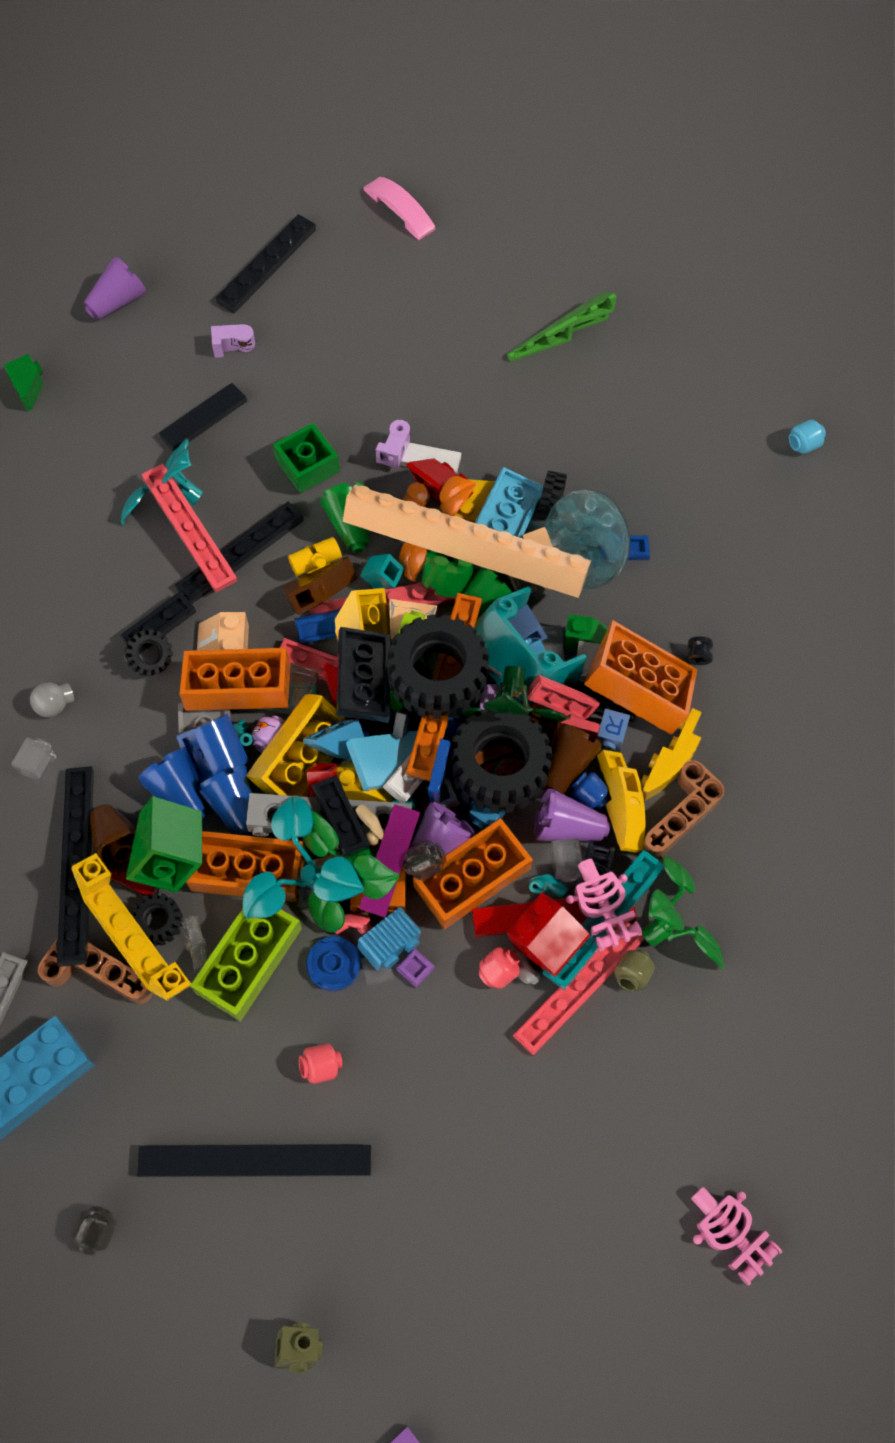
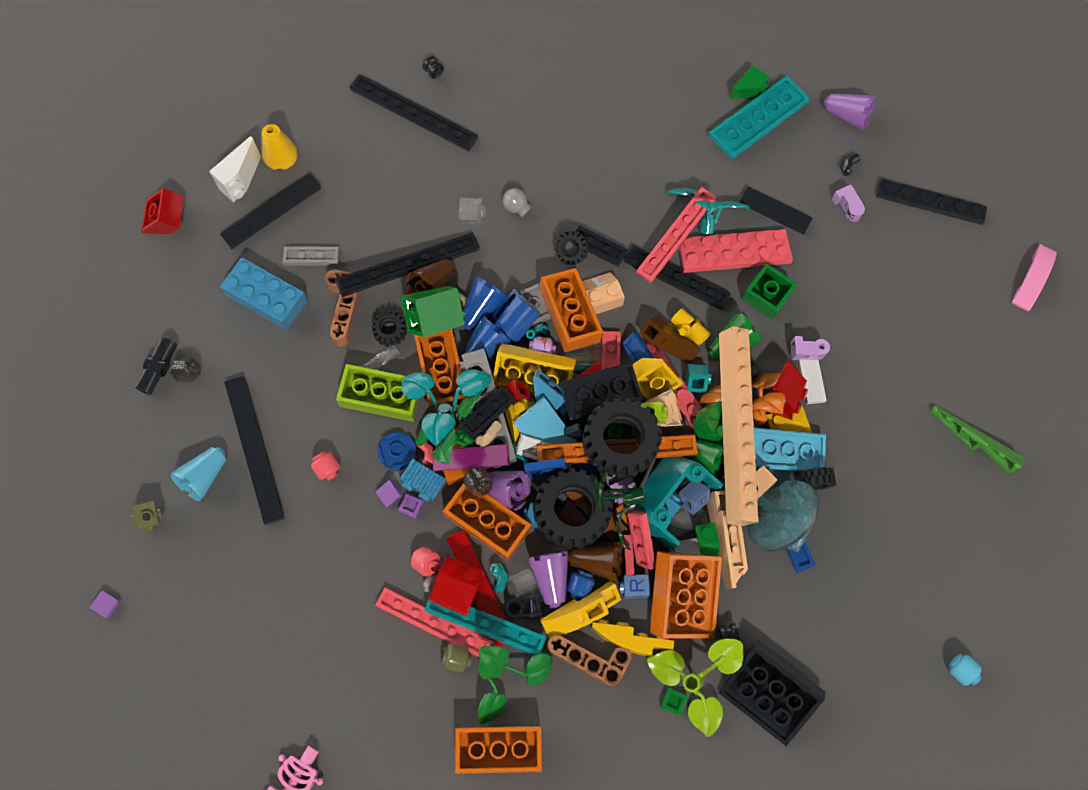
camera: 70 degrees right, 5 degrees up
(68, 1275) = (156, 366): none -> black piece
(73, 389) = (759, 117): none -> teal plate
(125, 932) = (369, 311): yellow slope -> none
(179, 323) = (848, 162): none -> black arm
(236, 476) = (735, 251): none -> coral plate
(264, 1248) = (199, 472): none -> medium azure cone
(389, 989) = (389, 493): none -> medium lavender tile
(554, 608) = (730, 540): none -> light nougat wedge
(596, 885) = (507, 605): bright pink torso -> none
(717, 728) = (668, 667): none -> lime plant
(758, 738) = (673, 702): none -> green tile
(764, 952) = (498, 750): none -> orange brick
(778, 630) = (773, 693): none -> black slope

